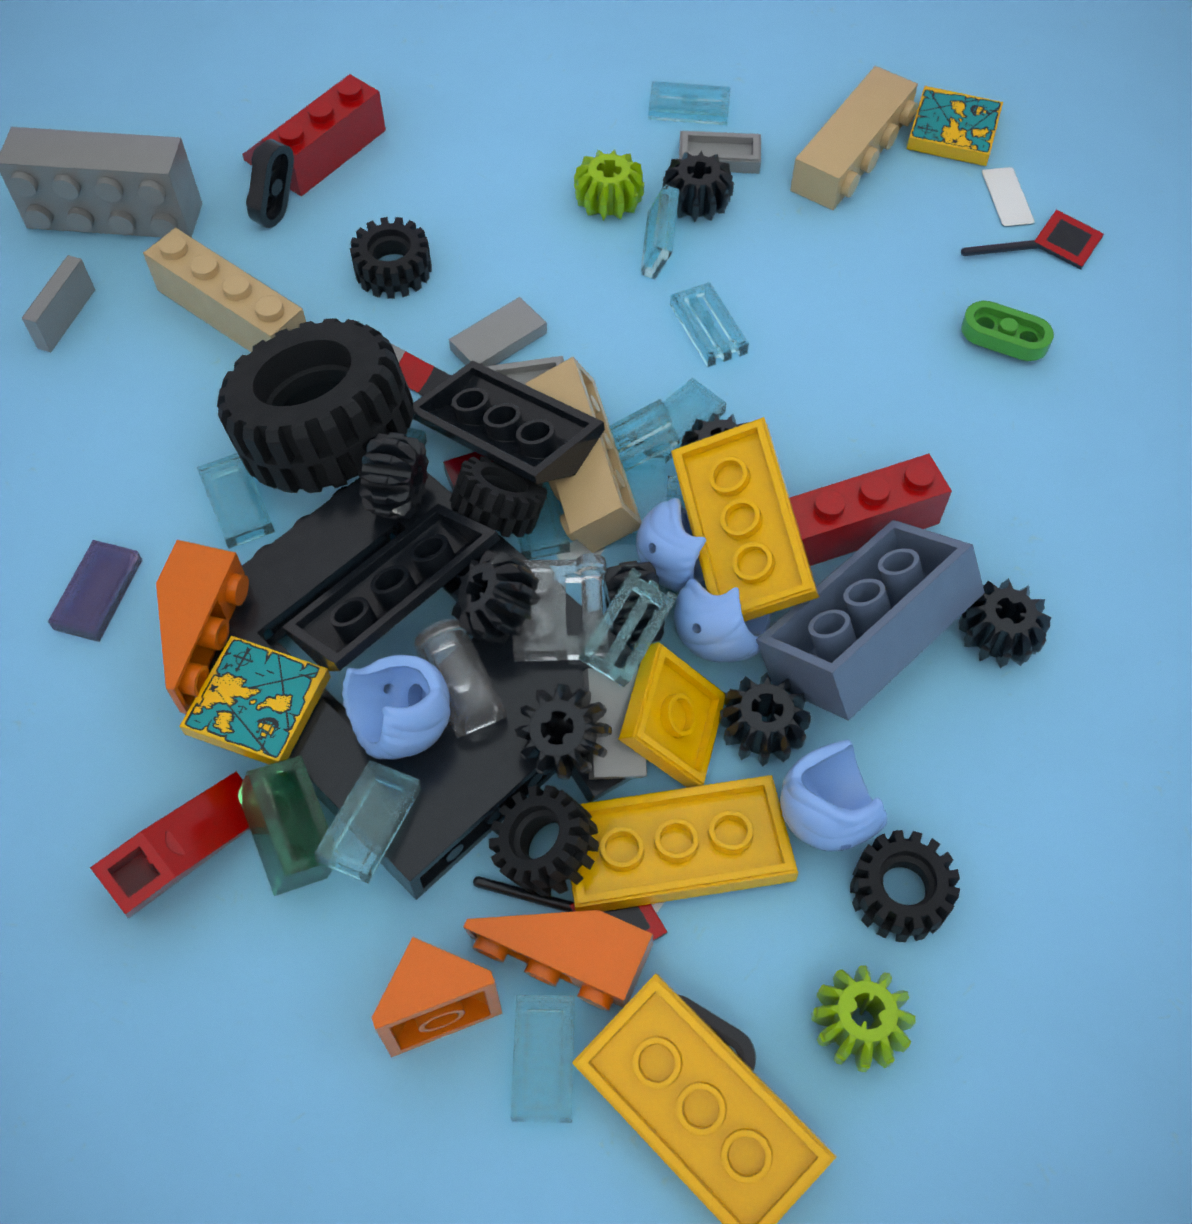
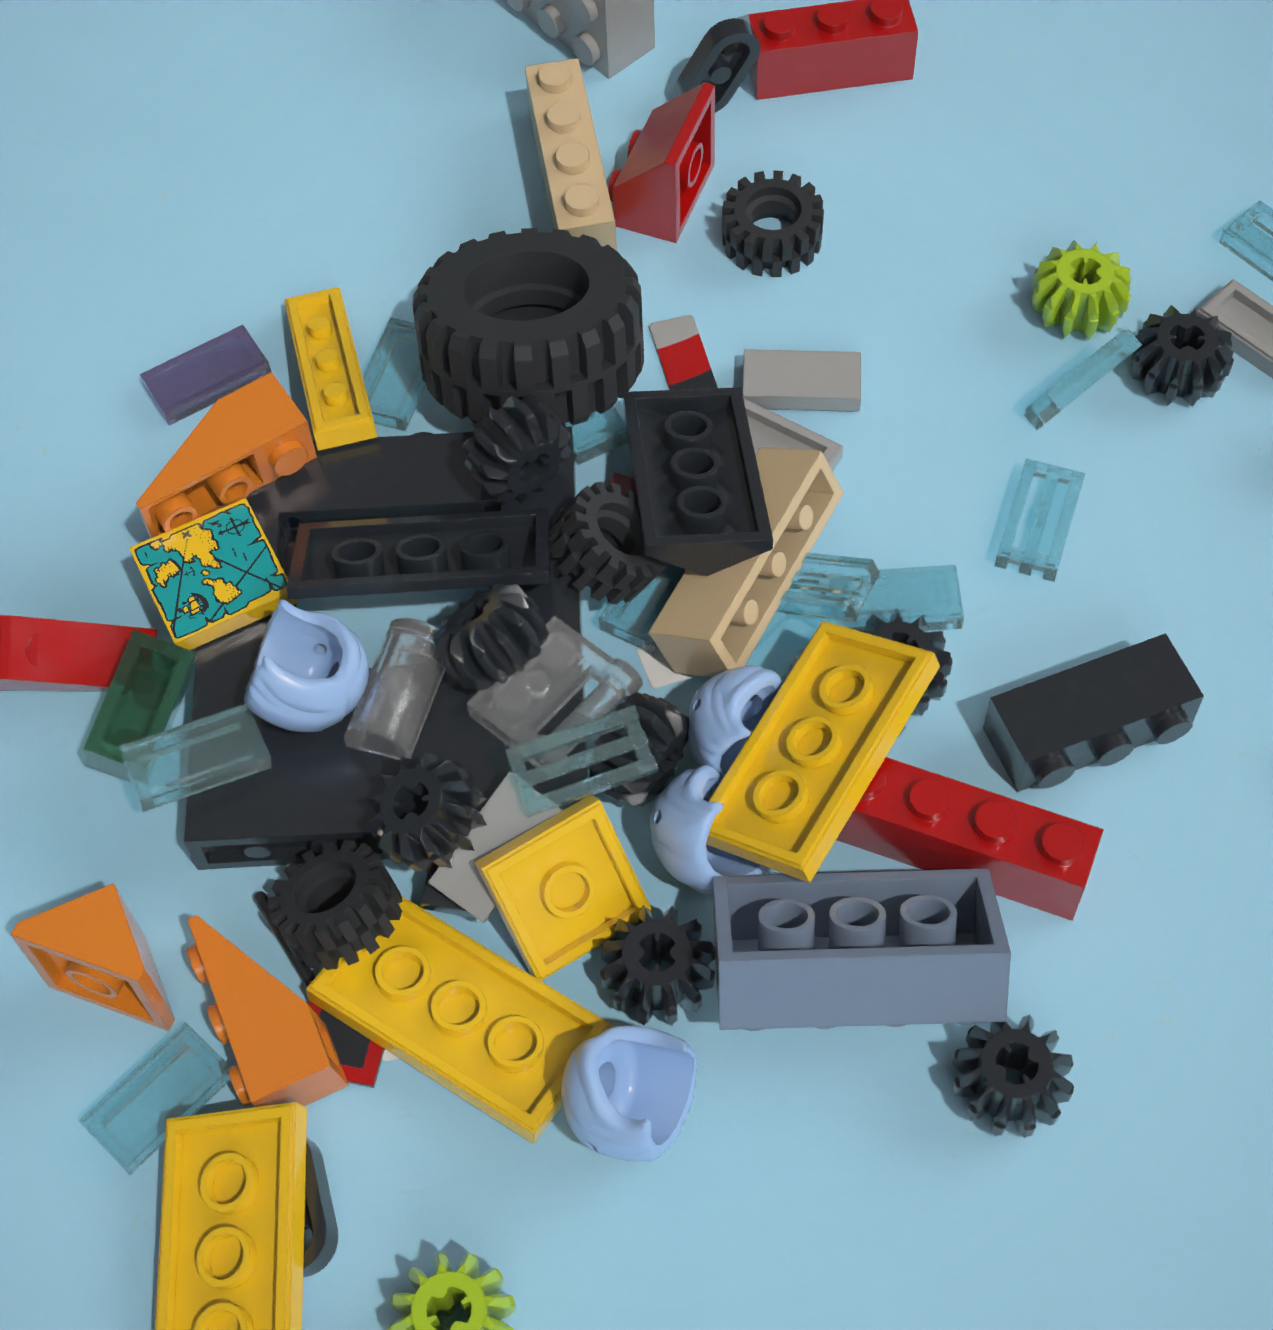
camera: 45 degrees right, 0 degrees up
(58, 303) = (420, 70): light grey tile -> none
(191, 519) = (329, 369): none -> yellow tile
(294, 255) = (666, 166): none -> red slope
(847, 405) = (1092, 713): none -> black brick
(894, 917) = (637, 1281): black tyre -> none

